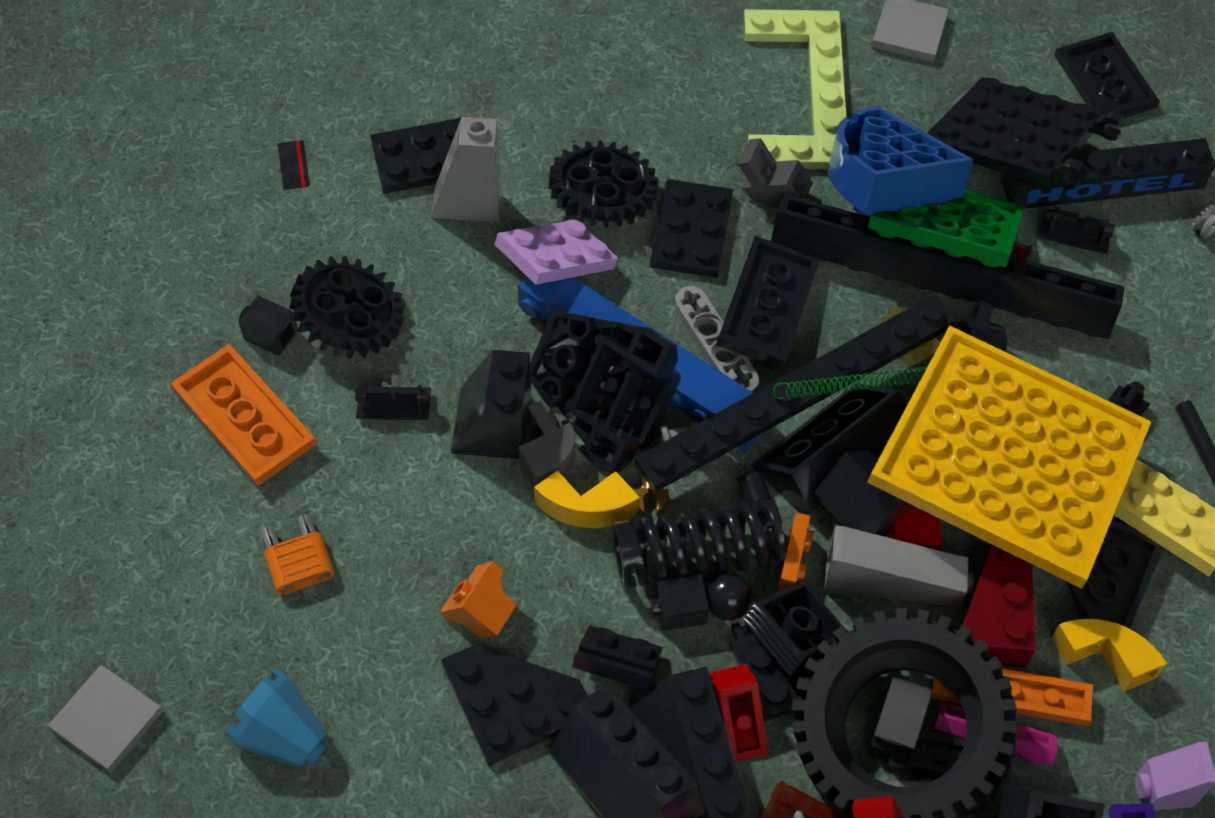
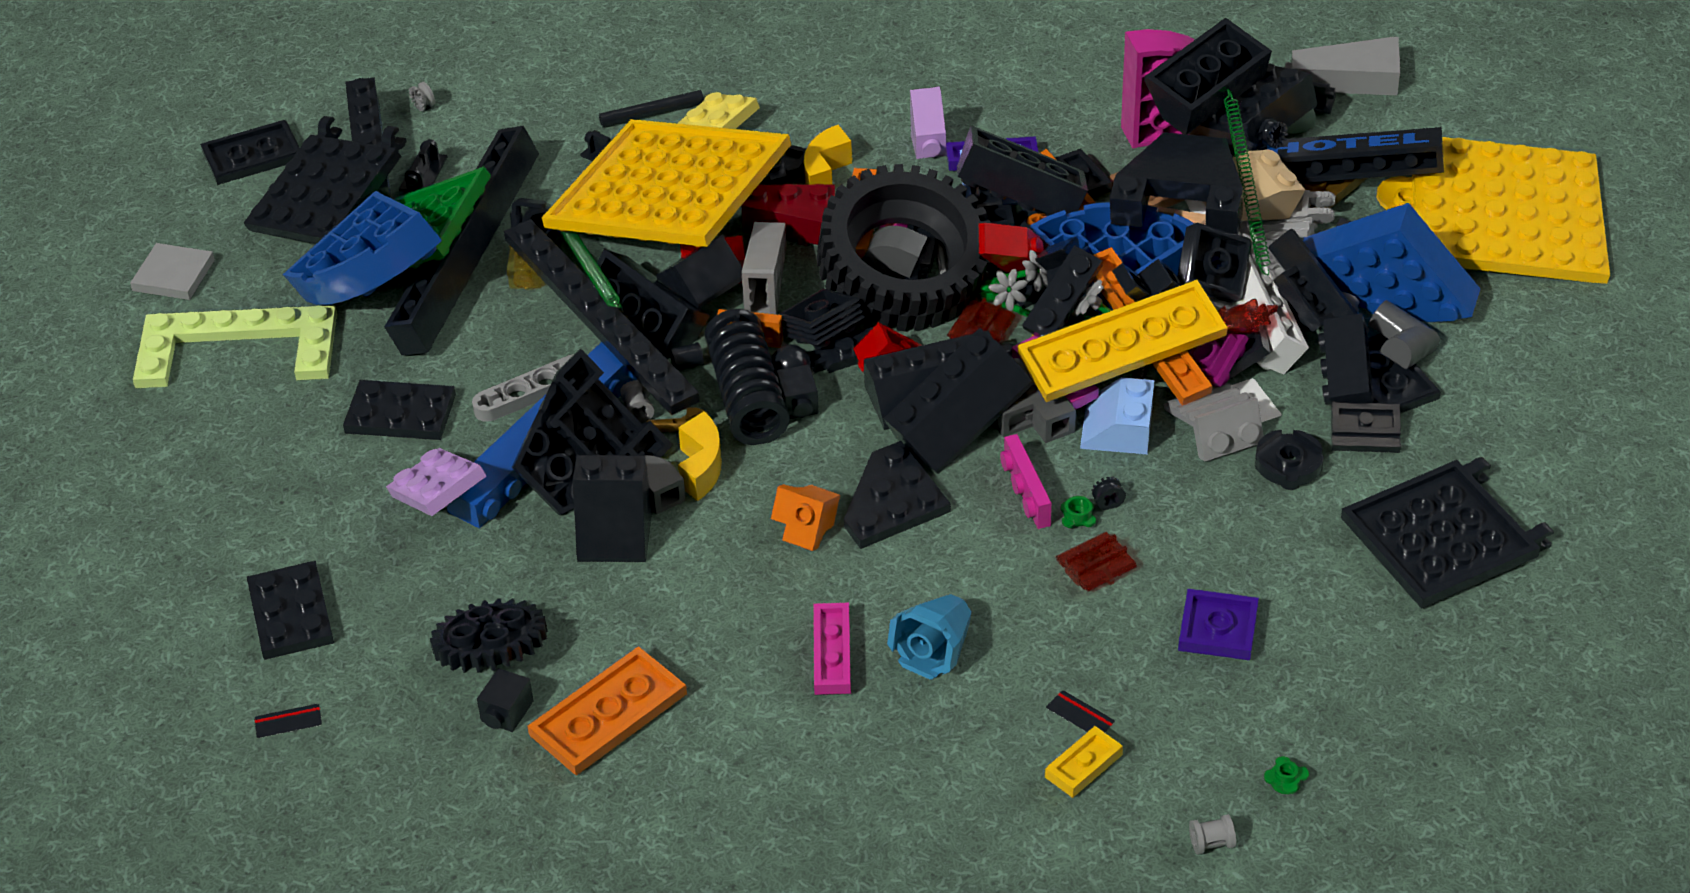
camera: 90 degrees left, 15 degrees down
(105, 718) = (935, 770): light grey tile -> none
(286, 622) = (831, 648): none -> dark pink plate
(298, 560) = (767, 650): orange piece -> none
(393, 402) = (593, 599): black hinge -> none
(471, 174) = (348, 533): light grey slope -> none
(603, 183) = (347, 465): black gear -> none
(617, 657) = (851, 426): black plate -> none
(768, 302) = (494, 346): black plate -> none
(771, 180) = (356, 348): dark grey brick -> none

